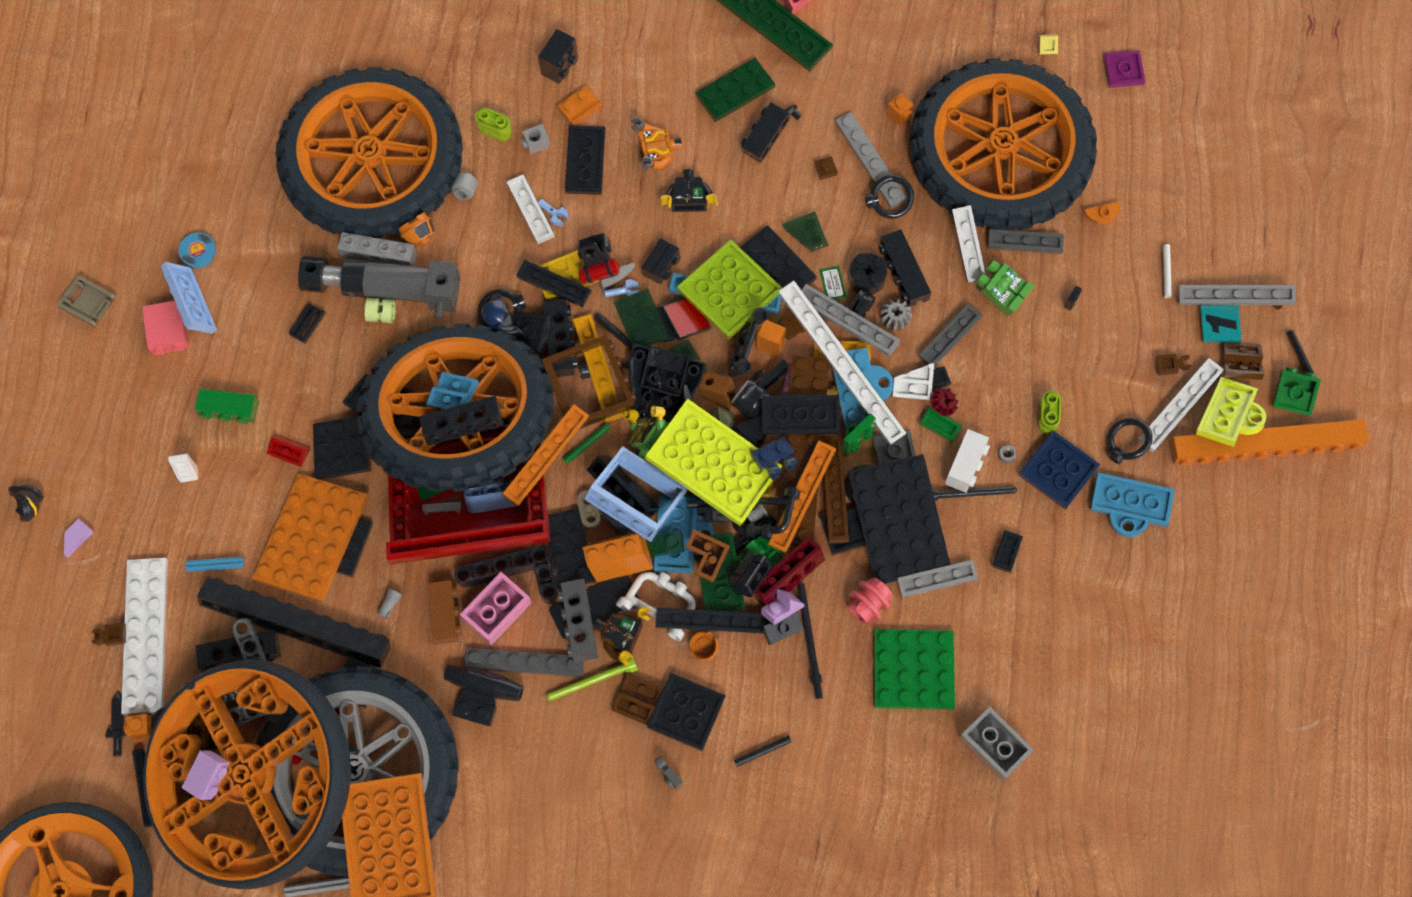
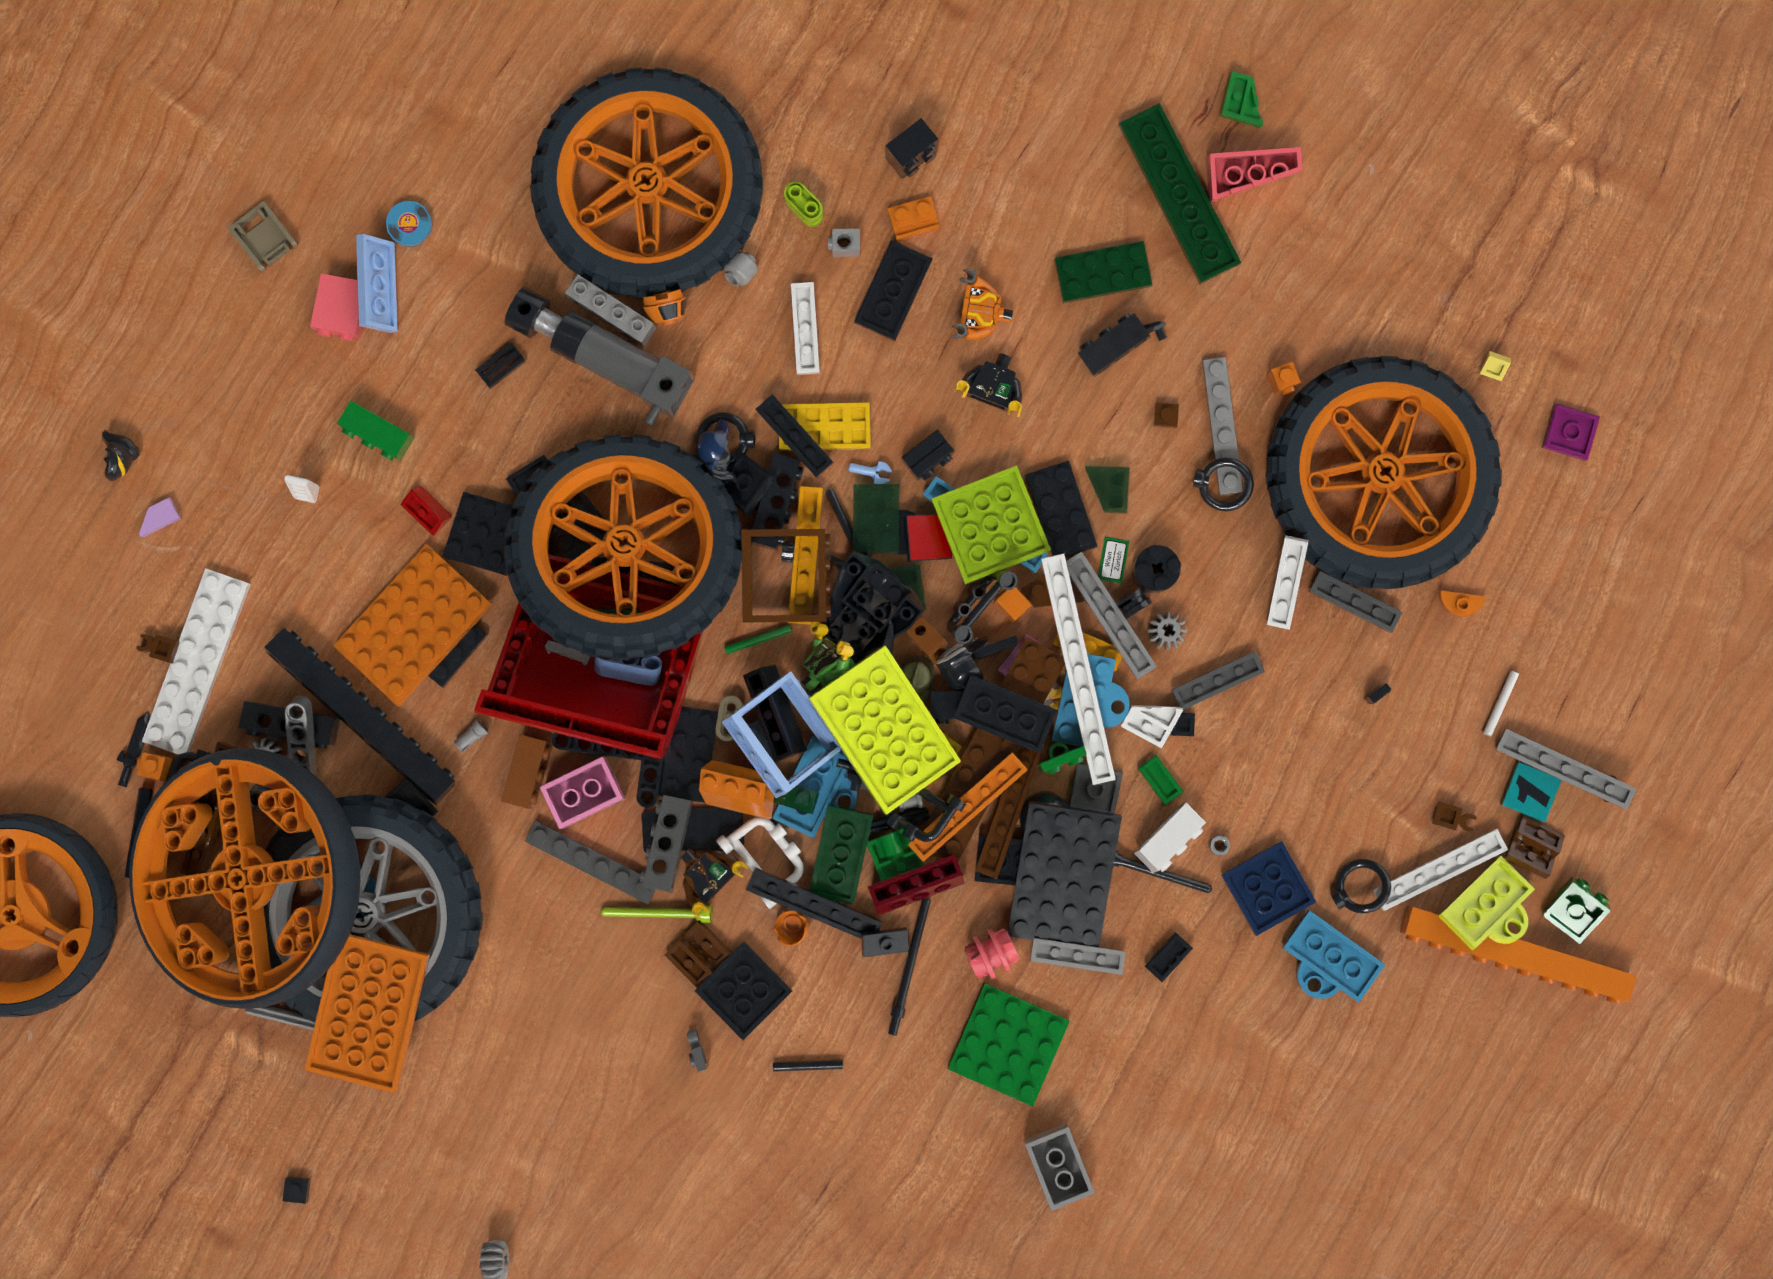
camera: 20 degrees right, 15 degrees up
(206, 775) = (198, 867): lavender brick -> none
(214, 564) = (298, 611): dark azure axle -> none
(373, 310) = (580, 381): yellowish green wheel -> none
(452, 391) = (624, 534): dark azure slope -> none
(461, 420) = (585, 566): black brick -> none
(480, 690) = (533, 876): black plate -> none
(545, 455) = (701, 646): orange plate -> none
(554, 212) = (829, 339): light blue bar -> none
(596, 259) = (853, 426): black piece -> none
(611, 282) = (877, 453): light grey slope -> none
(711, 551) = (839, 832): dark orange brick -> none
(749, 574) = (871, 873): black brick -> none
(772, 453) = (954, 745): dark blue plate -> none
(782, 607) = (894, 920): lavender slope -> none
(904, 267) = (1201, 578): black brick -> none
(940, 406) = (1168, 762): dark red gear -> none
(1004, 287) = (1304, 650): bright green hips -> none
(1049, 412) = (1287, 819): lime brick -> none
(1300, 352) = (1605, 864): black bar -> none

